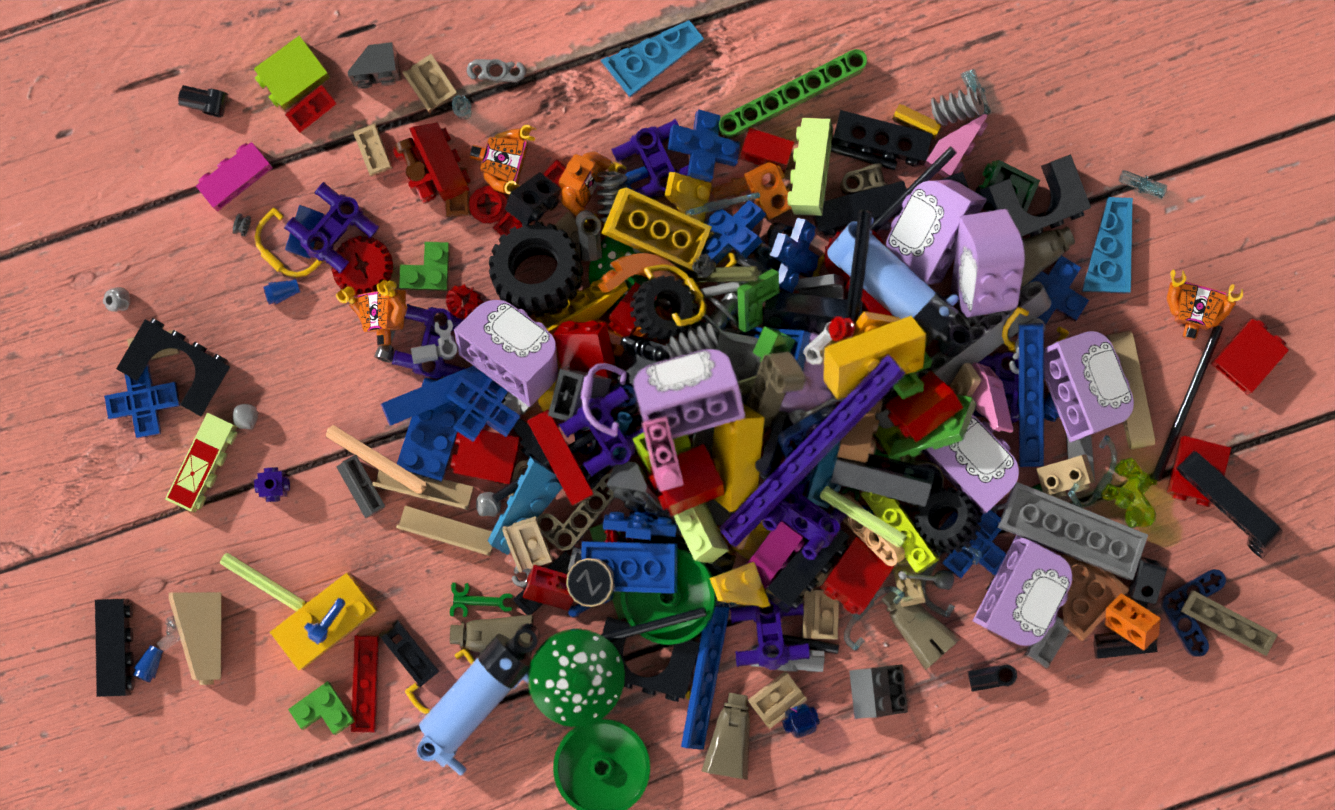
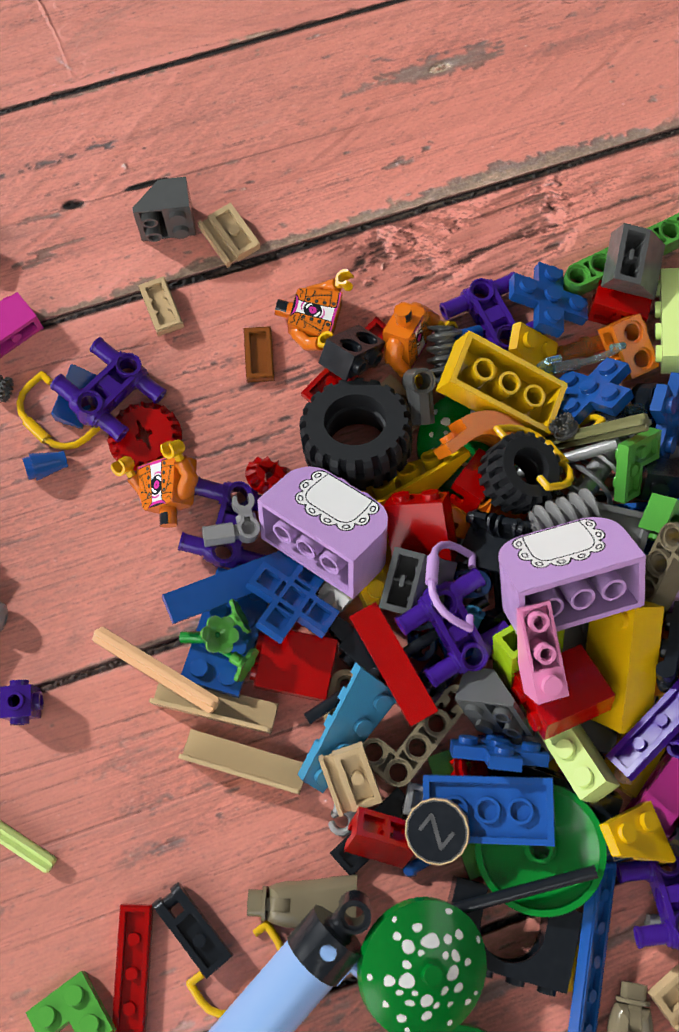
camera: 10 degrees left, 10 degrees down
(290, 73) = (68, 223): lime brick -> none
(293, 636) = (78, 887): yellow brick -> none
(310, 109) = (88, 258): red hinge -> none
(319, 631) = (68, 904): blue piece -> none
(360, 486) = (134, 704): dark grey piece -> none
(385, 353) = (170, 537): dark grey hinge -> none
(416, 170) = (215, 332): hips -> none
(427, 436) = (221, 635): none -> bright green plant
(432, 274) = (229, 446): bright green plate -> none
(441, 160) = (240, 314): red slope -> none
(461, 107) = (266, 255): clear light blue pin -> none
(461, 599) = (262, 854): green bar -> none
(479, 198) = (304, 359): red gear -> none
(486, 64) = (314, 230): light grey piece -> none
(487, 505) = (296, 727): light grey piece -> none
(644, 62) = (471, 216): dark azure wing -> none
(776, 117) = (633, 261): none -> dark grey slope

